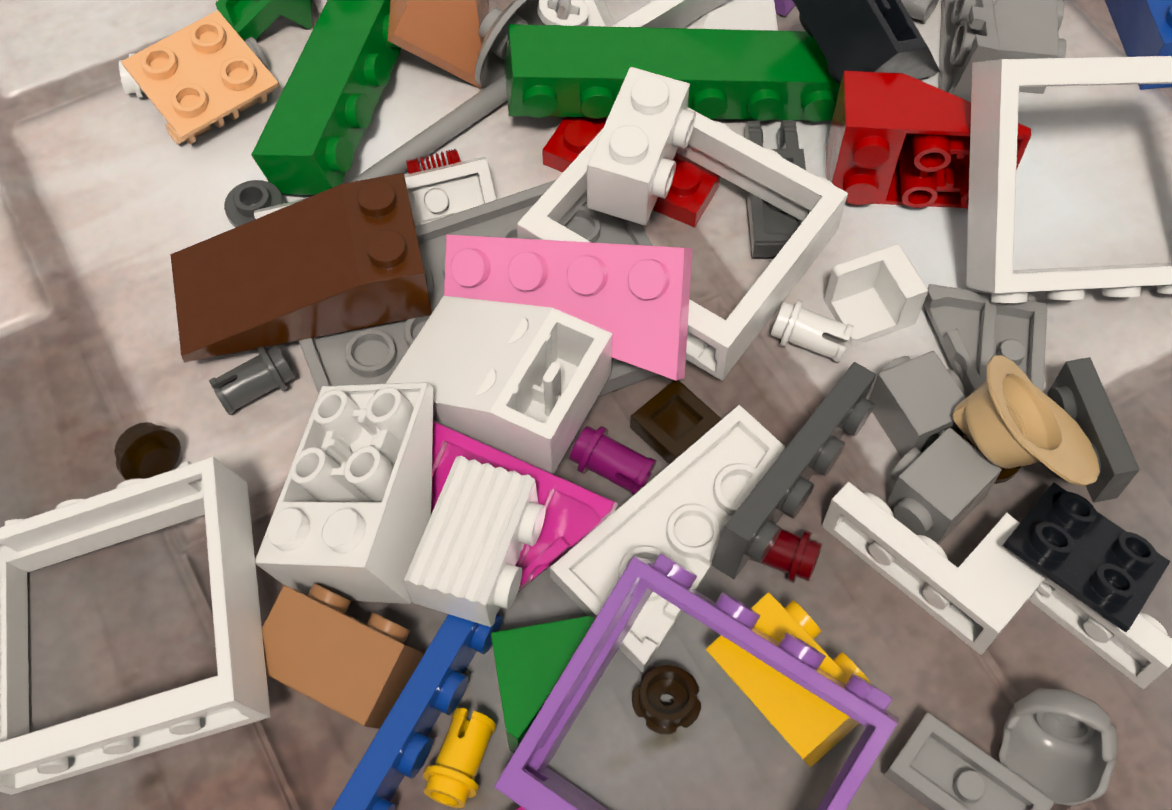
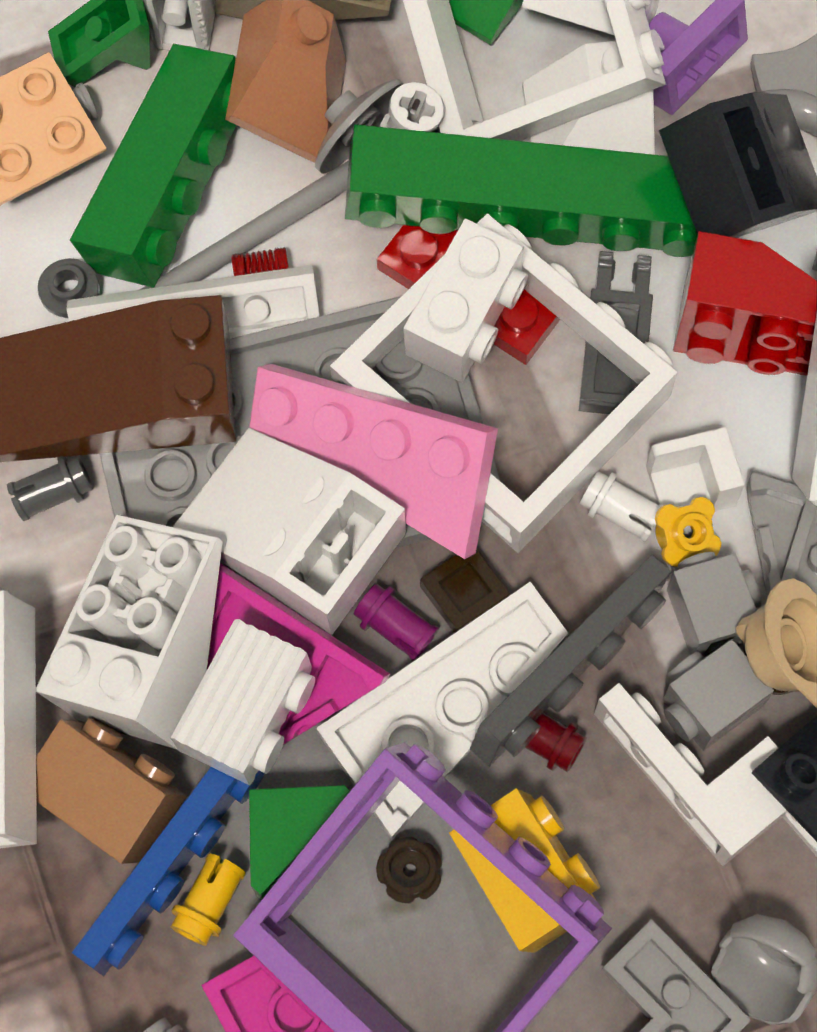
camera: 10 degrees right, 10 degrees up
(864, 345) = (670, 528): none -> yellow plate

